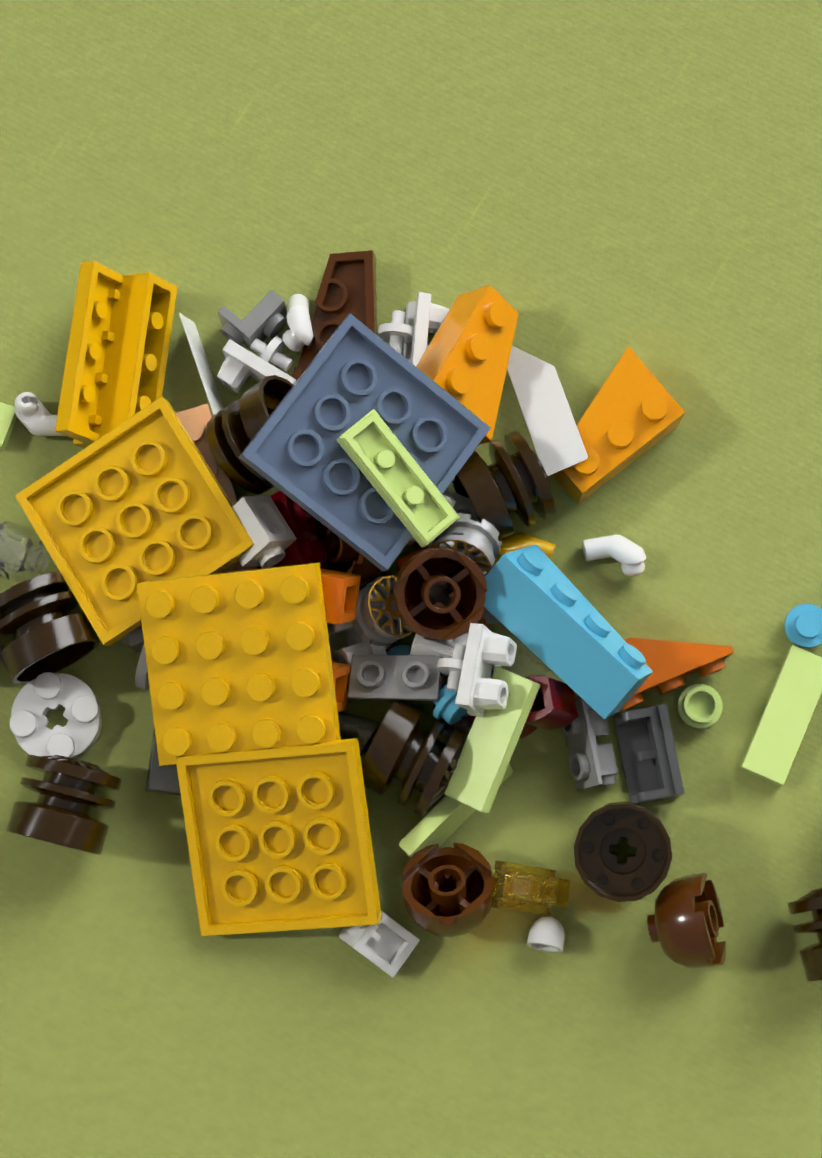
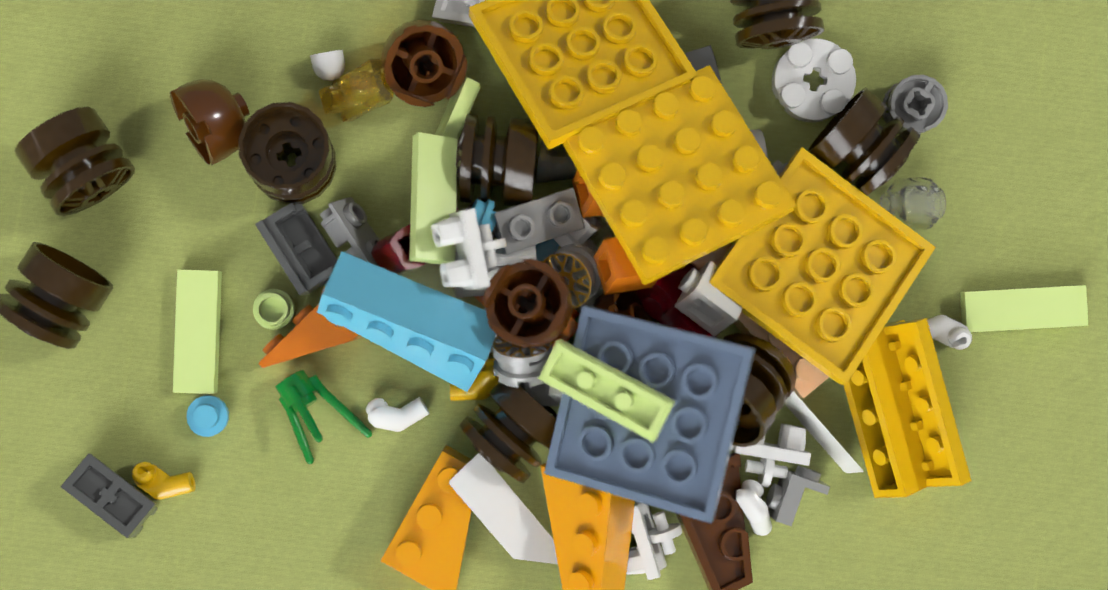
camera: 160 degrees right, 10 degrees up
(709, 608) = (298, 394): none -> green plant

